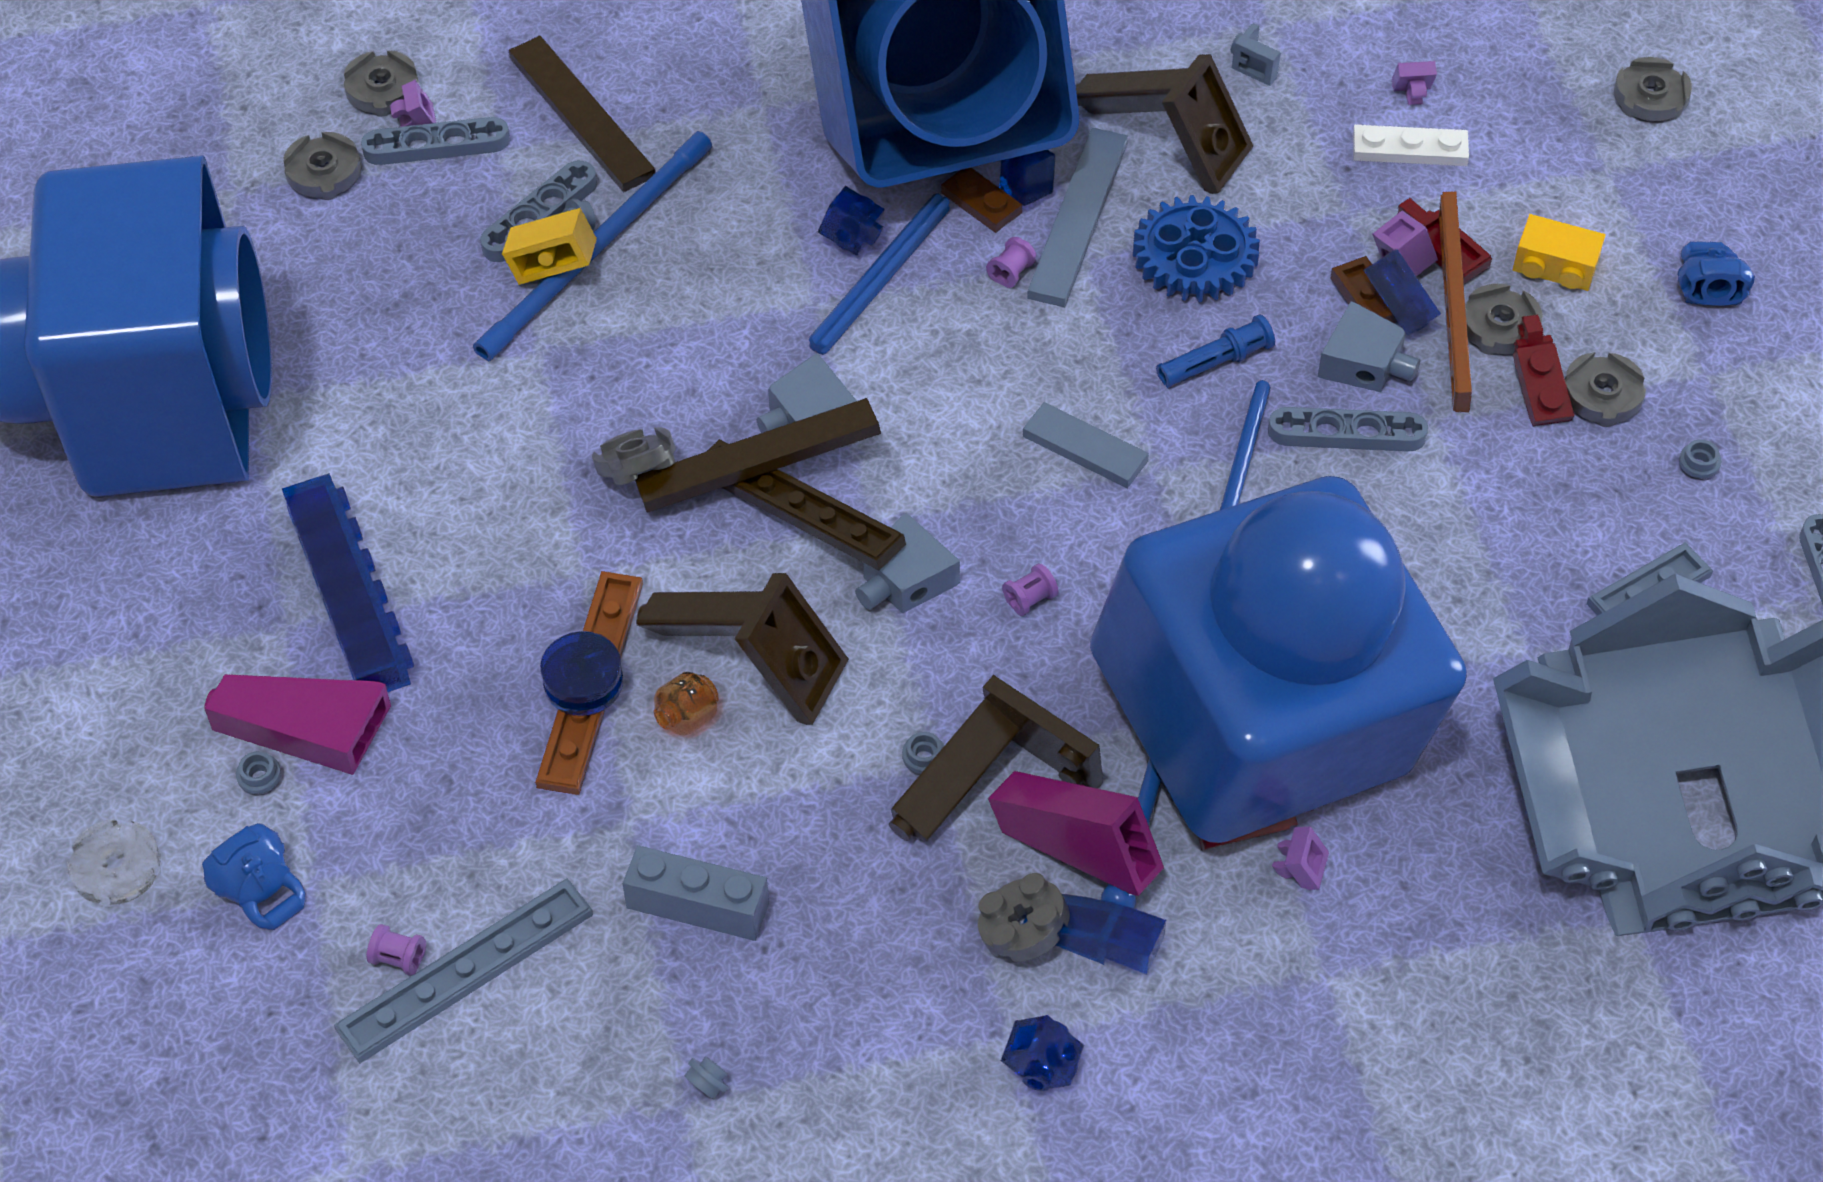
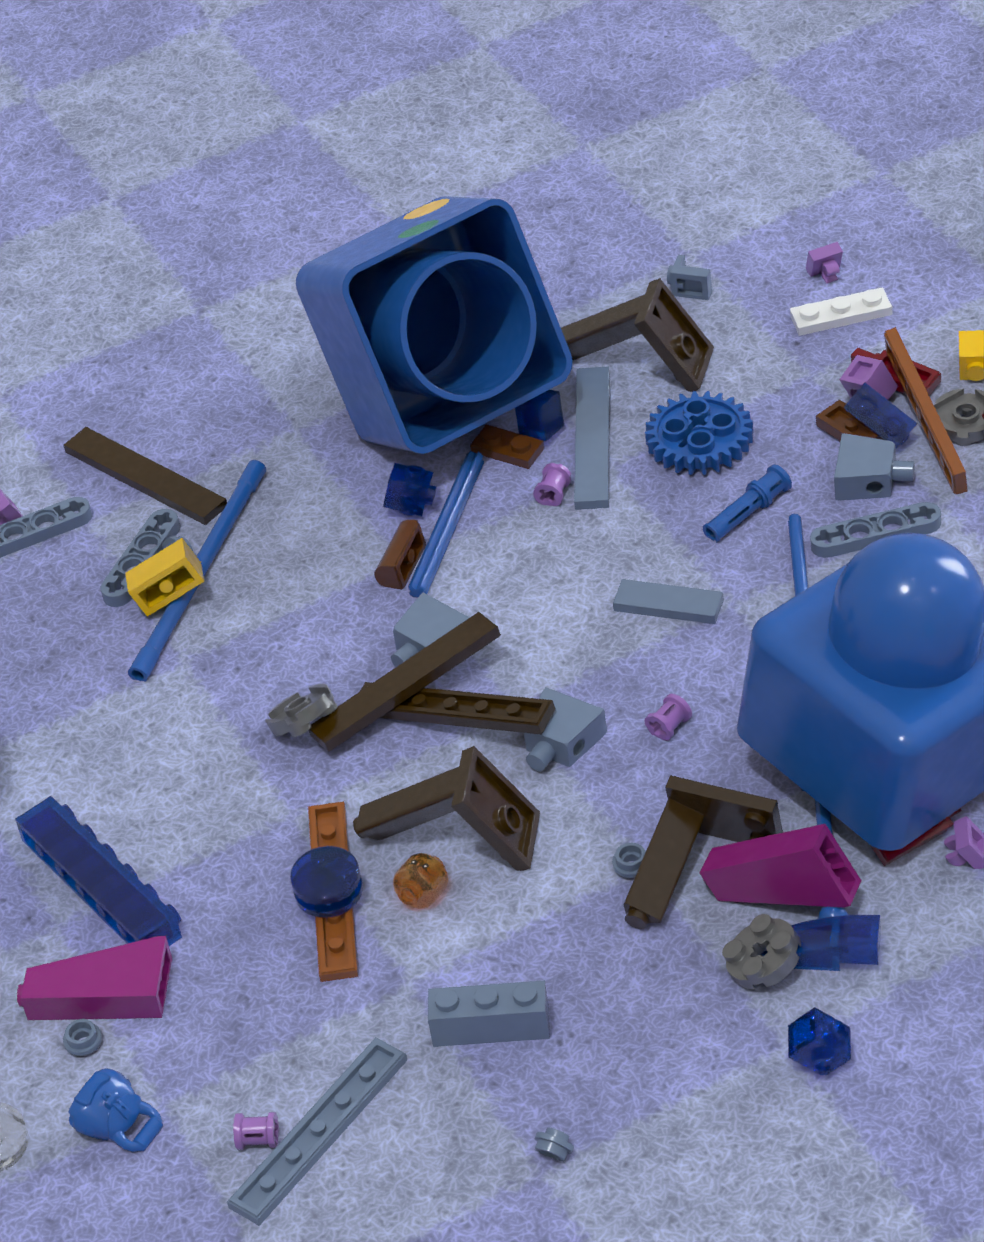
camera: 10 degrees left, 10 degrees down
(815, 297) = (401, 555): none -> reddish brown brick

